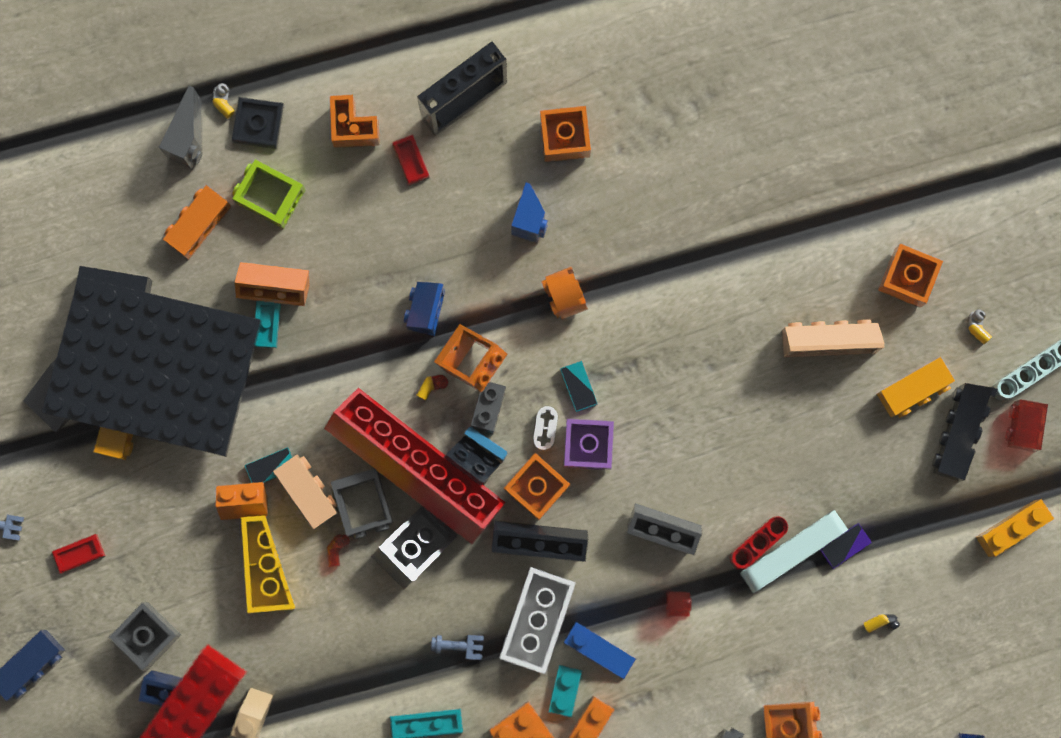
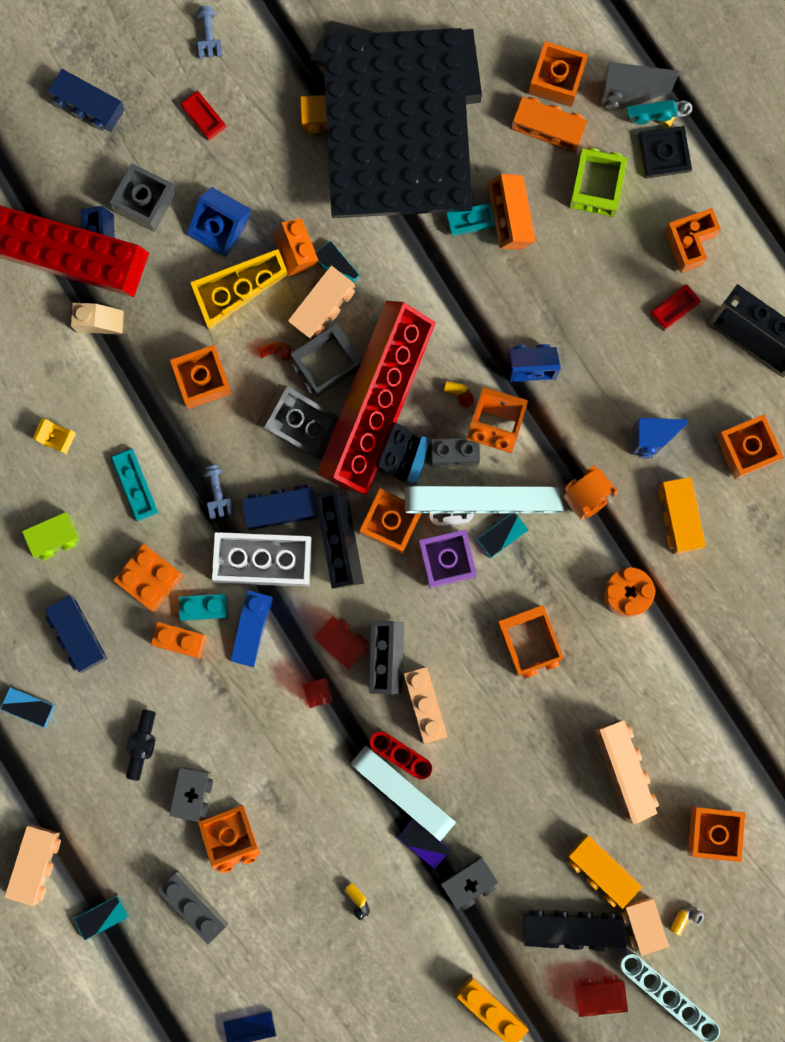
camera: 75 degrees right, 0 degrees up
(151, 198) = (558, 74): none -> orange brick
(191, 568) = (218, 221): none -> blue slope
(219, 113) = (653, 111): none -> teal plate
(342, 629) = (201, 377): none -> orange brick
(491, 589) = (279, 507): none -> dark blue brick
(543, 394) = (483, 499): none -> light aqua beam
(610, 216) = (681, 515): none -> light orange brick
(638, 567) = (341, 642): none -> clear red brick
(663, 391) = (550, 663): none -> orange window
(673, 274) = (642, 593): none -> orange brick
(719, 506) = (425, 705): none -> light nougat brick
(894, 526) = (455, 883): none -> dark grey brick
(975, 366) = (644, 926): none -> light nougat brick

